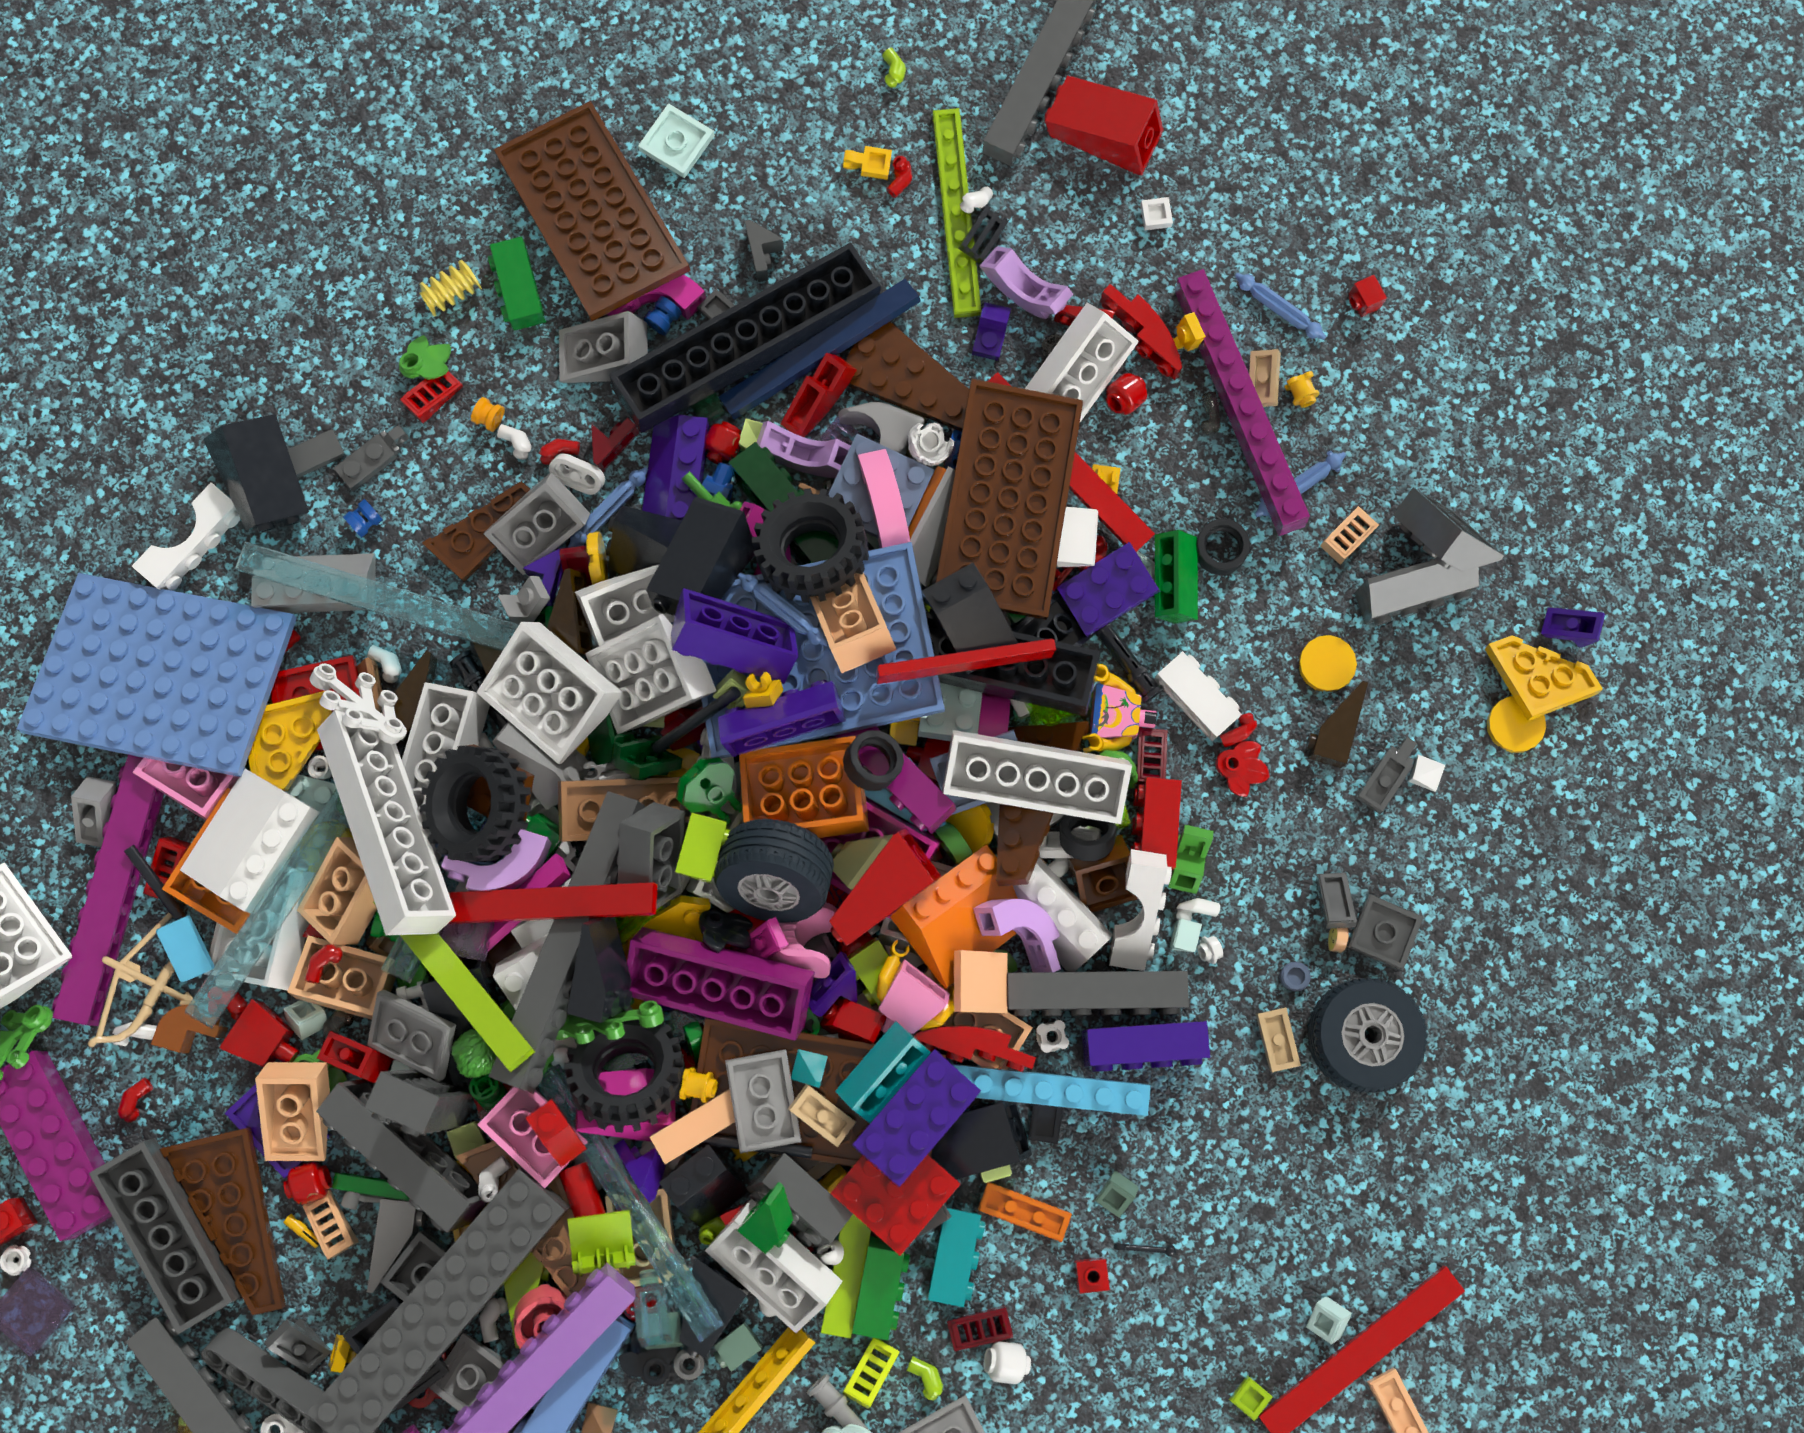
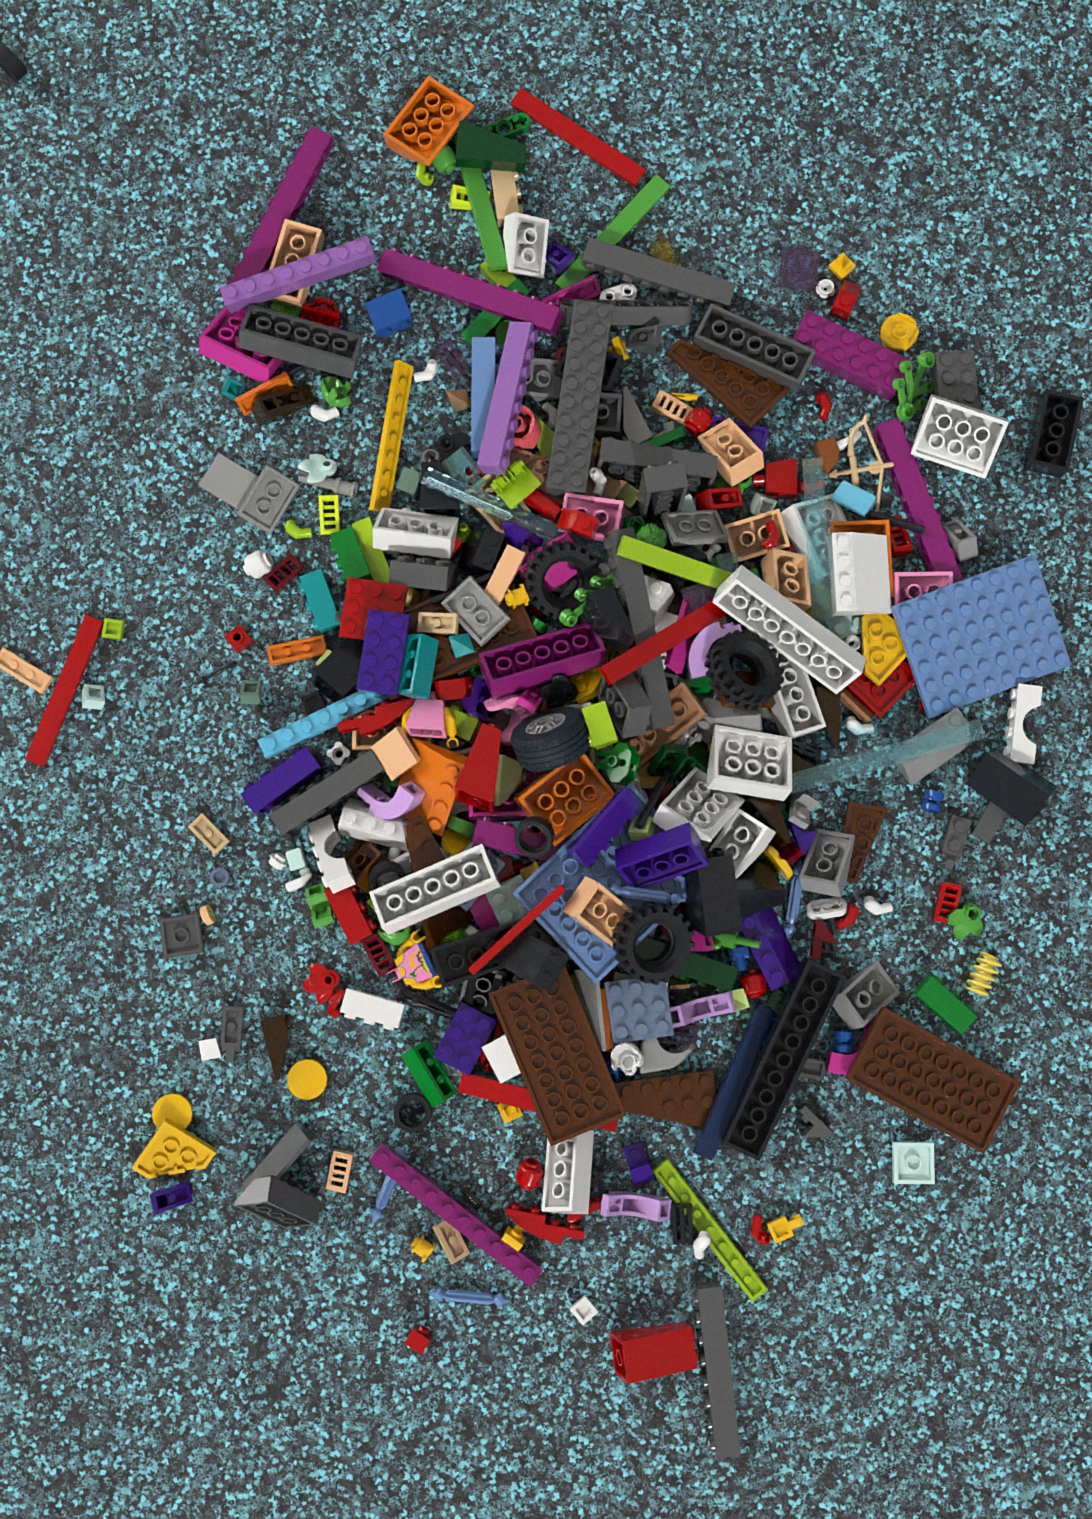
camera: 150 degrees right, 5 degrees up
(387, 725) = (828, 685): white plant -> none
(487, 414) = (904, 911): light orange wheel -> none
(762, 692) = (623, 835): yellow tile -> none
(768, 1220) = (431, 549): green slope -> none
(818, 394) = (716, 1051): red slope -> none
(833, 1257) = (385, 558): white hinge -> none
(884, 498) = (629, 1002): bright pink slope -> none
(896, 70) = (808, 1303): lime arm -> none
(1336, 900) = (220, 935): dark grey tile -> none
(1394, 1029) = (140, 862): black wheel -> none

